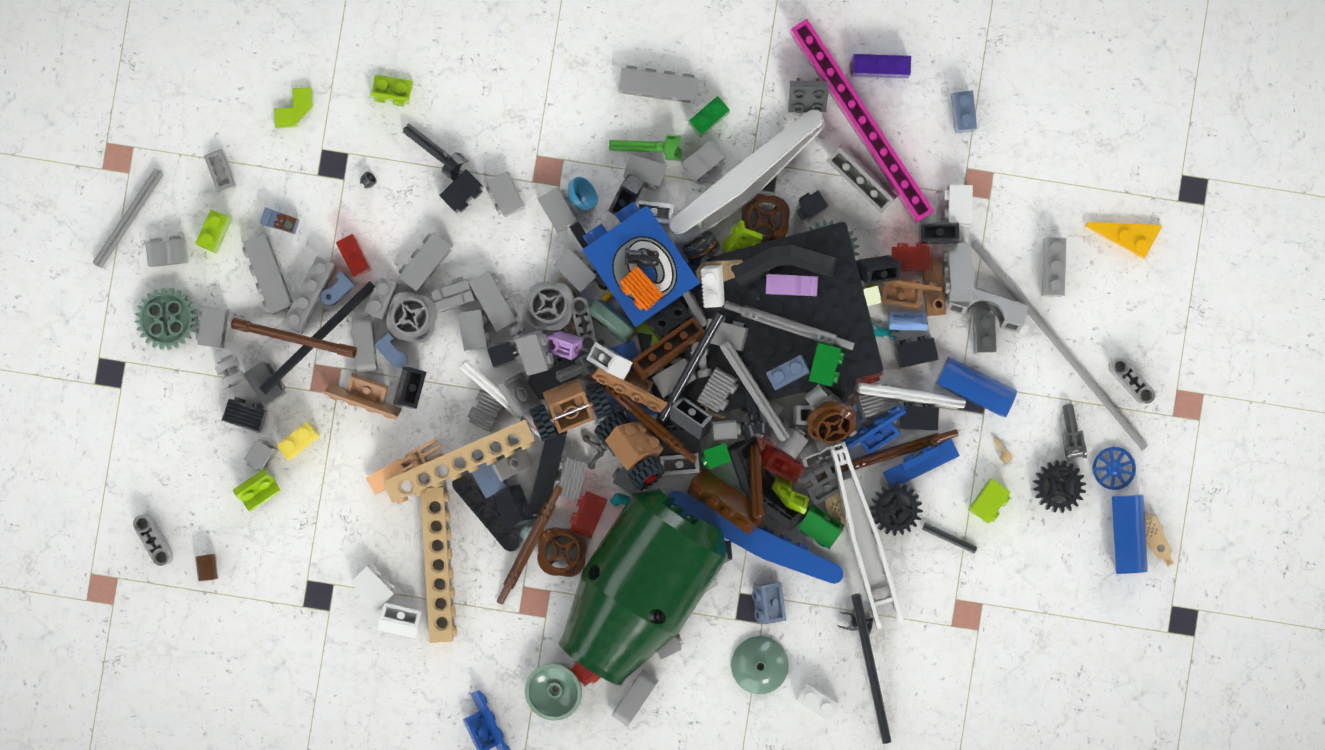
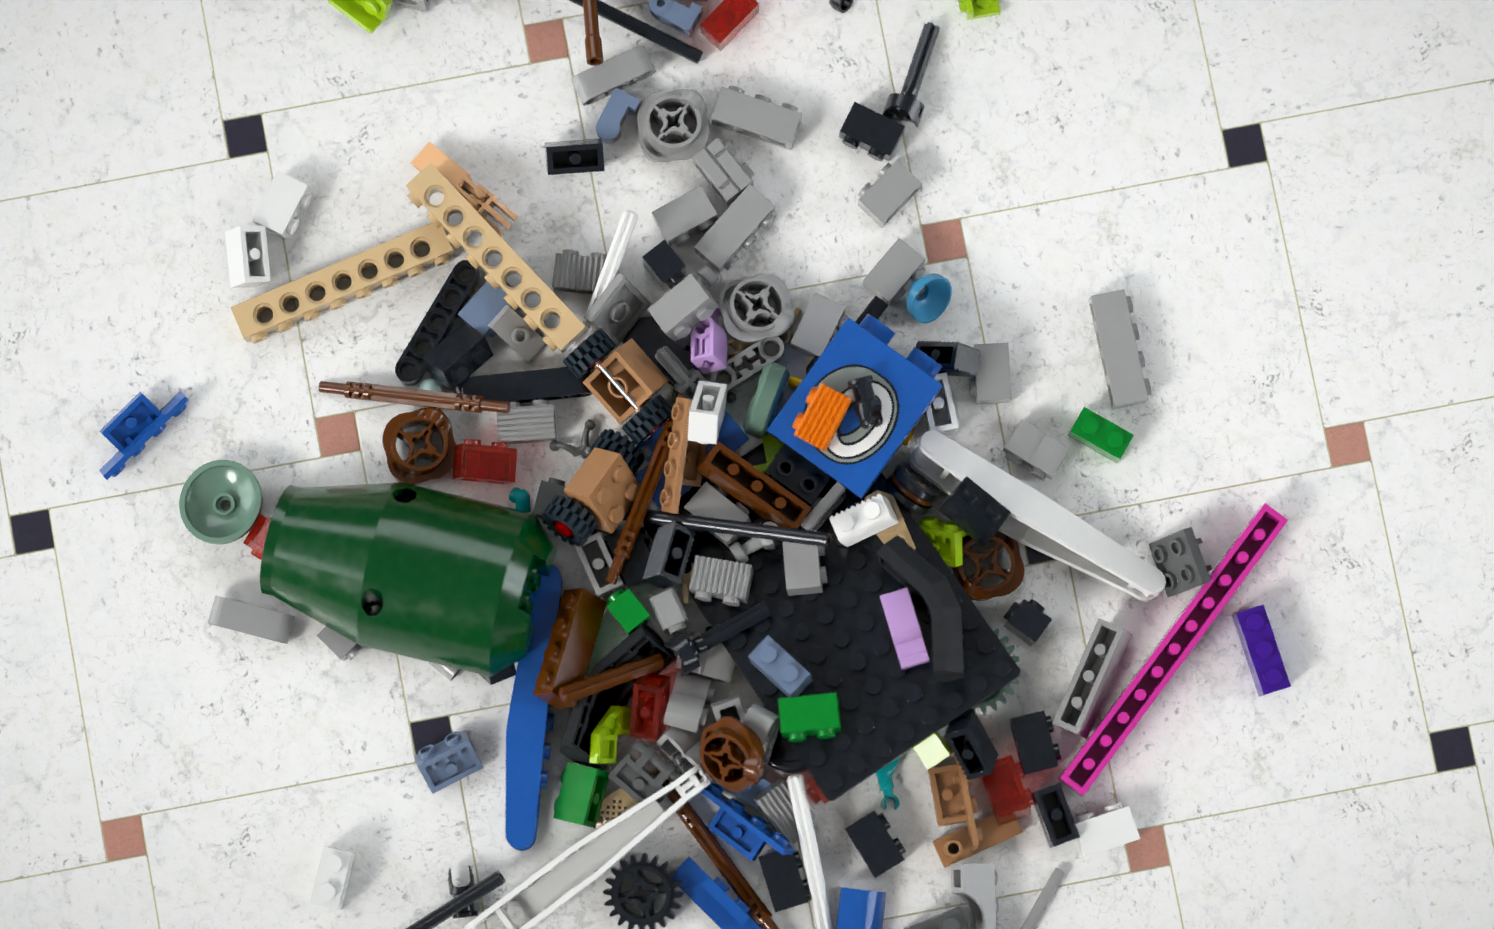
camera: 75 degrees right, 5 degrees down
(298, 440) = (448, 32): light yellow brick -> none
(364, 394) = (543, 100): medium nougat bracket -> none
(381, 298) = (684, 74): light grey brick -> none
(669, 146) = (1037, 395): bright green piece -> none
(731, 214) = (974, 511): none -> black brick
(754, 391) = (737, 630): light grey axle -> none
(756, 651) = (377, 783): sand green dish -> none
(789, 325) = (846, 646): light grey axle -> none
(888, 229) = (1034, 742): none -> black brick
(907, 321) = (915, 816): light blue plate -> none
(959, 272) = (1009, 862): light grey brick -> none
(964, 112) = (1239, 790): sand blue brick -> none

